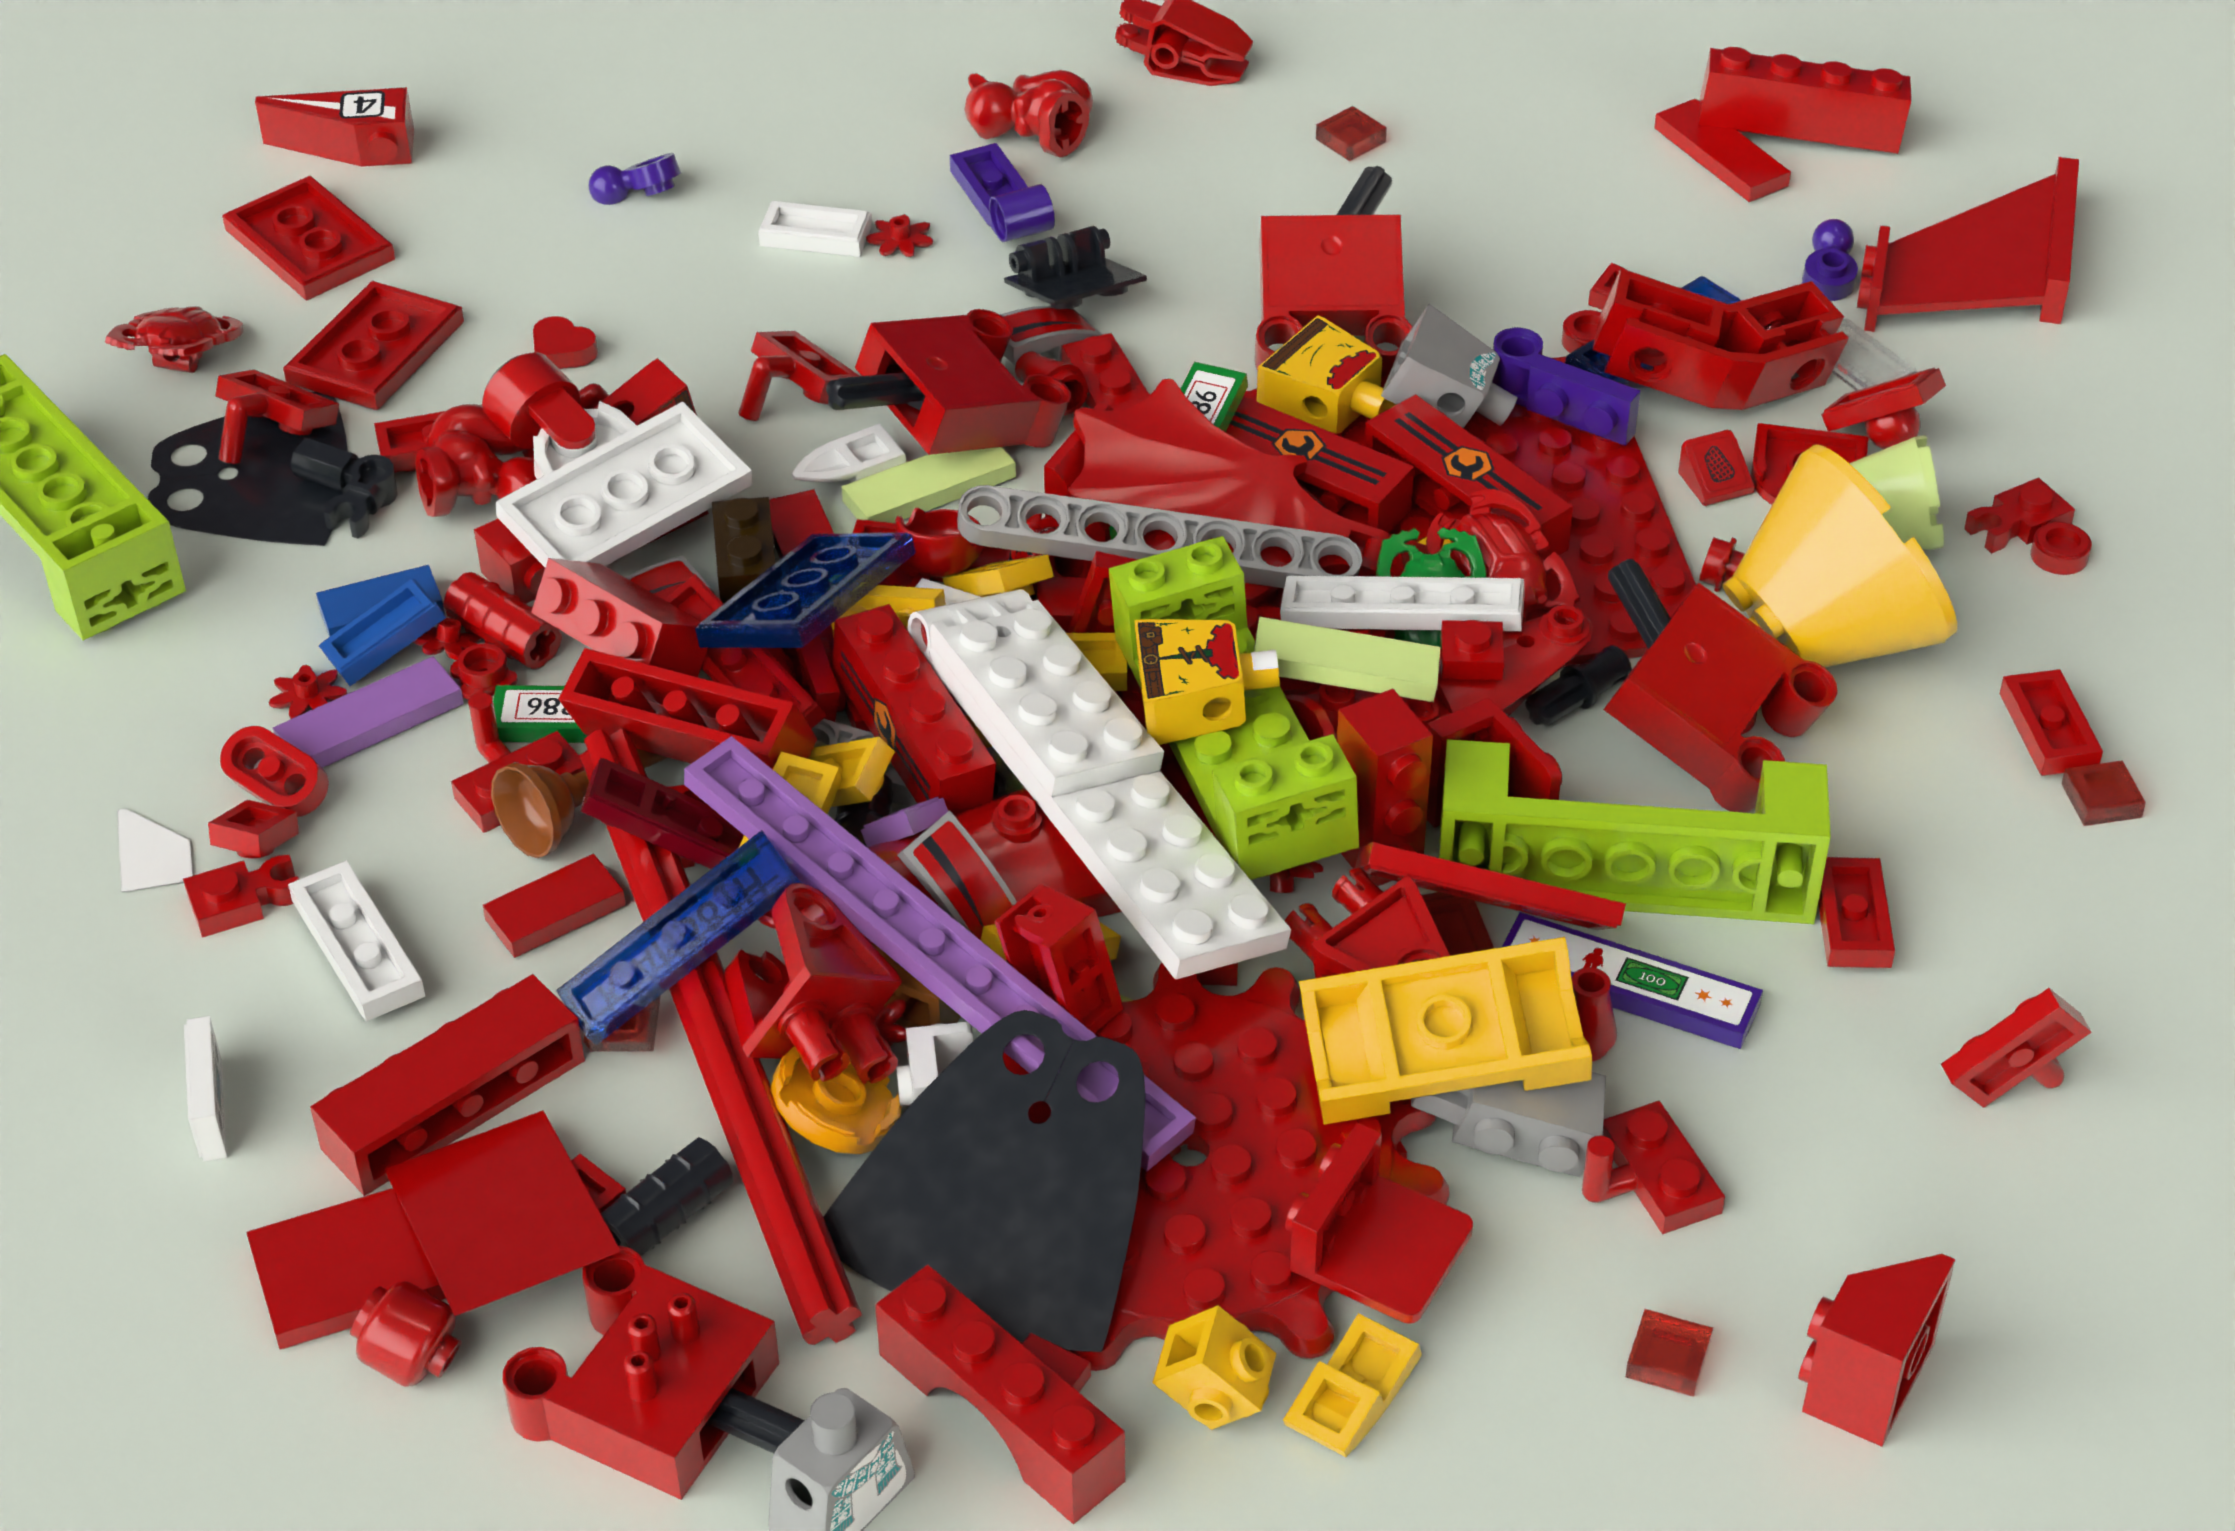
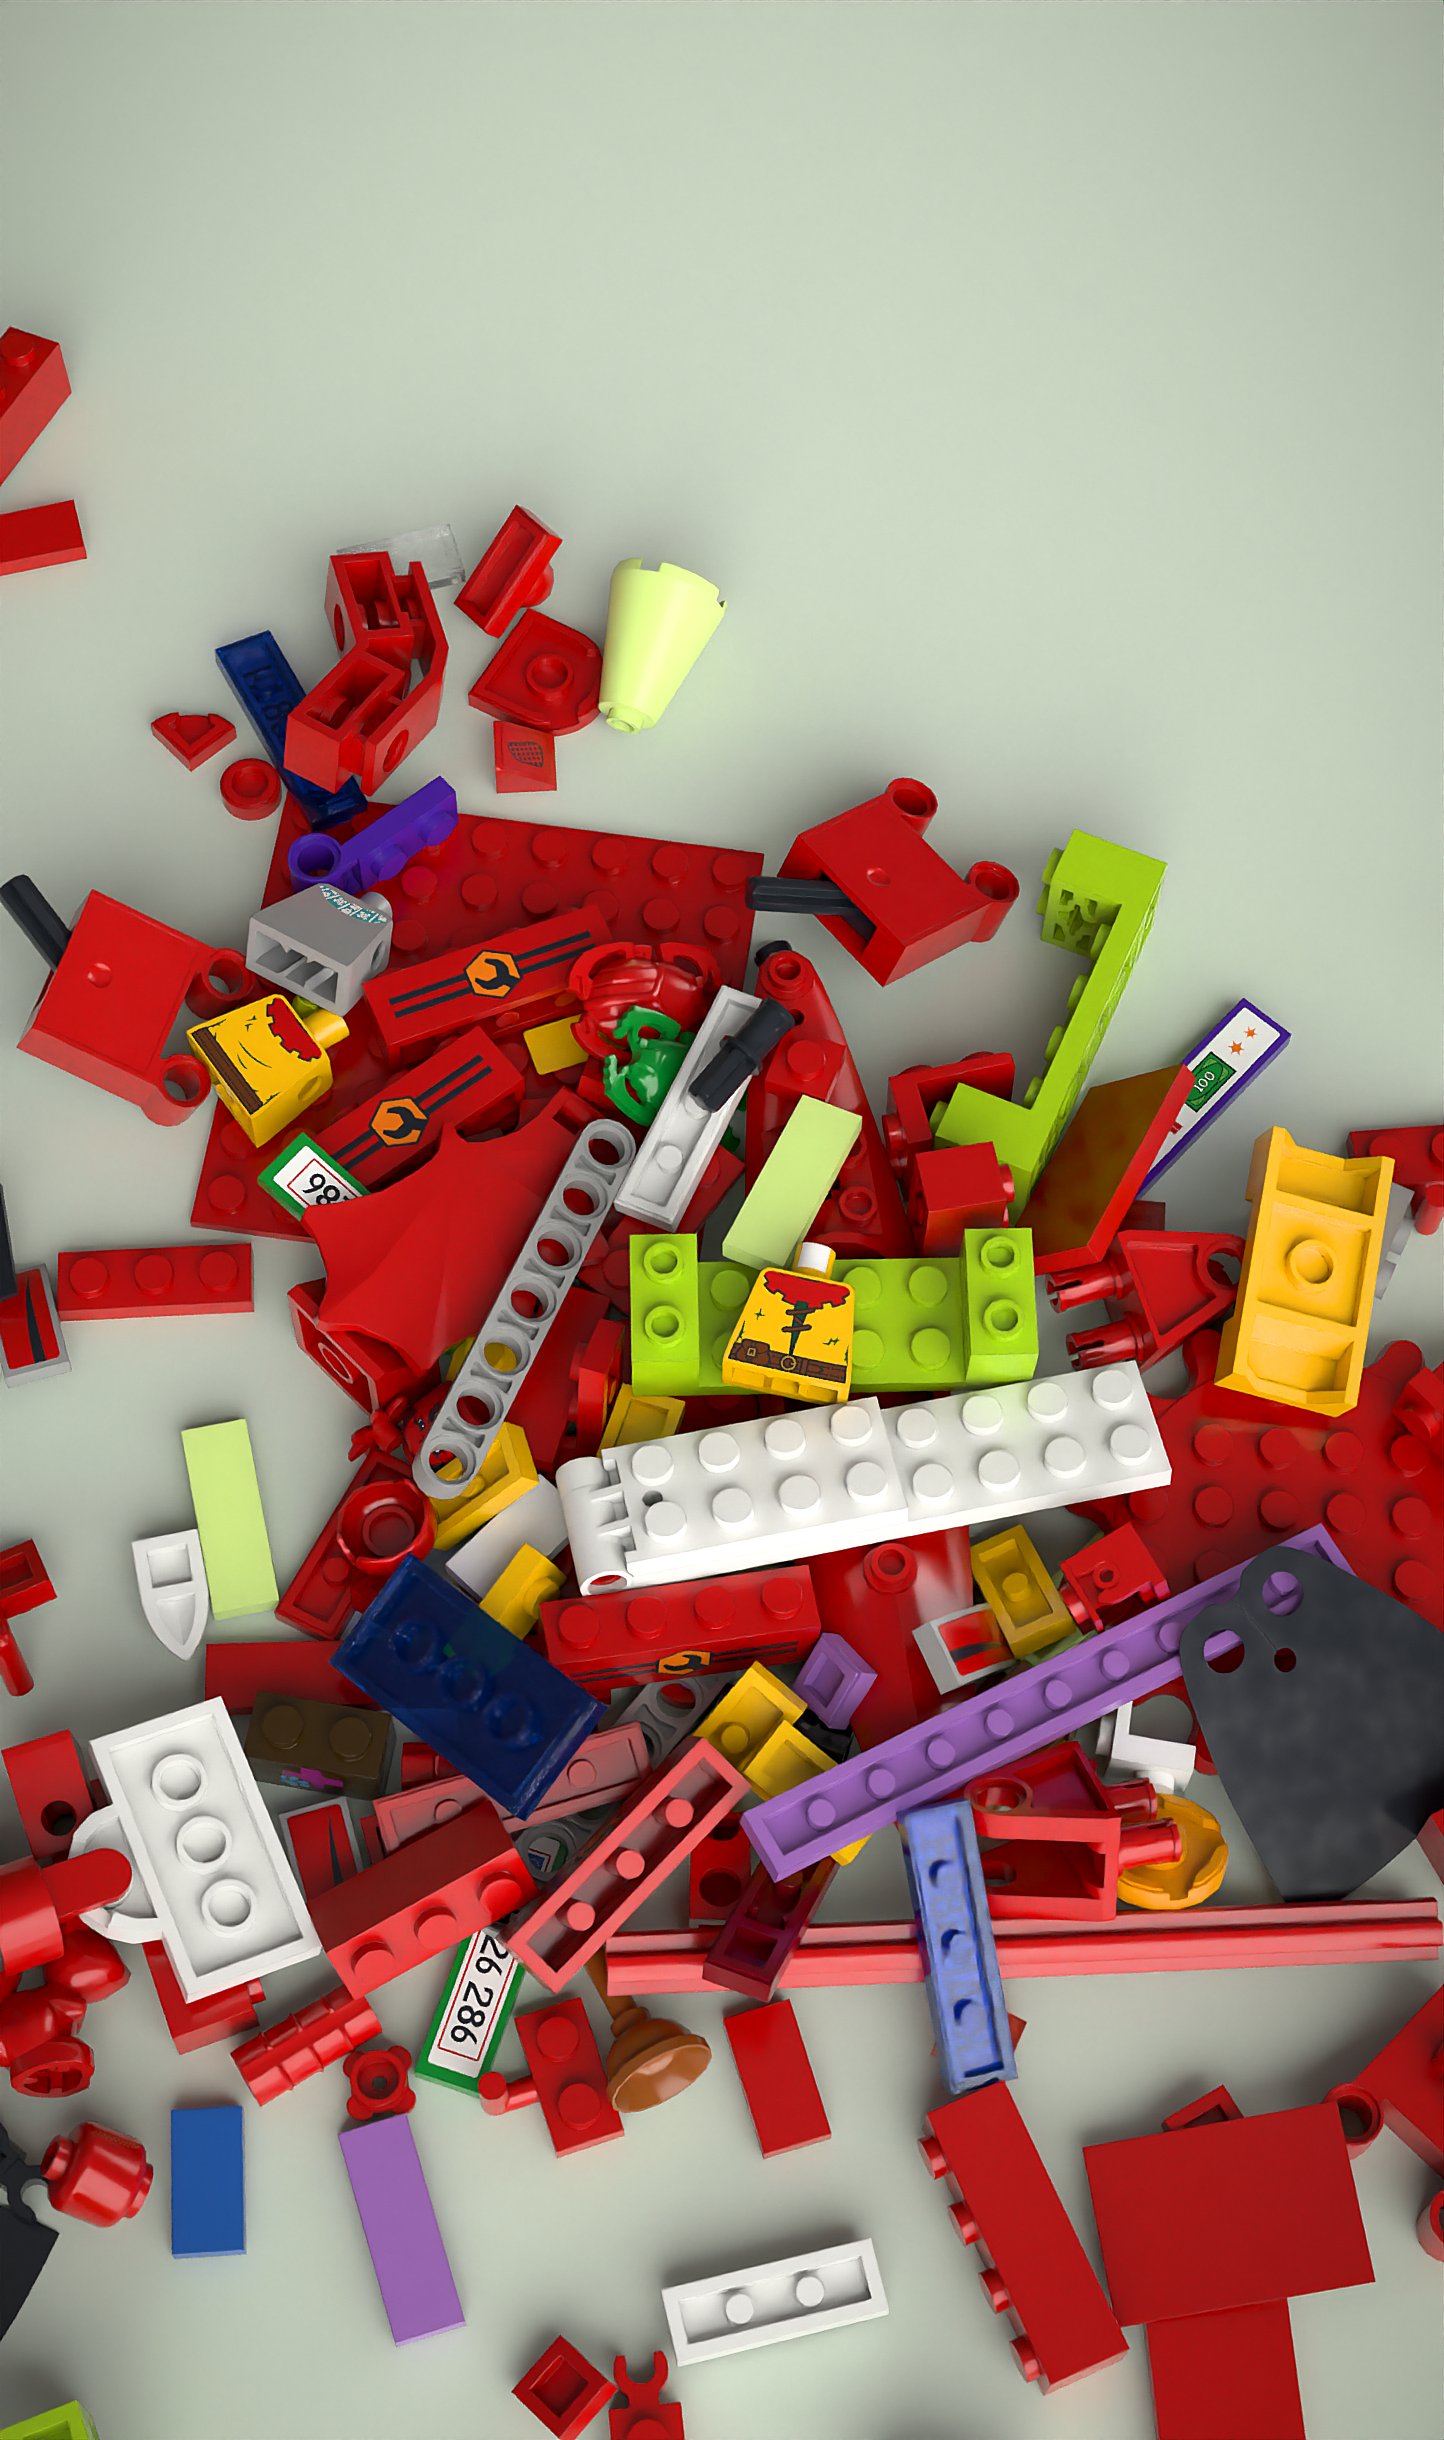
camera: 75 degrees left, 20 degrees up
(277, 774) = (478, 2355): red plate -> none
(306, 691) = (330, 2309): red plant -> none
(363, 530) = (97, 2174): none -> red head
(382, 631) = (282, 2185): blue tile -> none
(405, 1333) = (1351, 2341): red head -> none
(446, 637) = (307, 2114): red plant -> none
(668, 1196) = (1237, 2049): black axle -> none
(950, 384) = (132, 1444): red piece -> none
(1068, 374) = (120, 1341): red cone -> none
(1451, 591) = (741, 1055): none -> black axle
(1595, 1009) = (1234, 1152): red cone -> none
(1720, 562) = (666, 808): red plate -> none
(1830, 264) = (210, 511): dark purple plate -> none
(1834, 572) = (787, 718): yellow cone -> none
(1855, 914) = (1191, 890): red plate -> none
(1983, 258) = (300, 387): red piece -> none
(2018, 514) = (685, 526): red plate -> none
(2018, 1048) = (1402, 816): red plate -> none
(2050, 721) = (983, 630): red plate -> none
(2061, 548) = (741, 519): red tile -> none
(2103, 793) = (1074, 630): clear red tile -> none

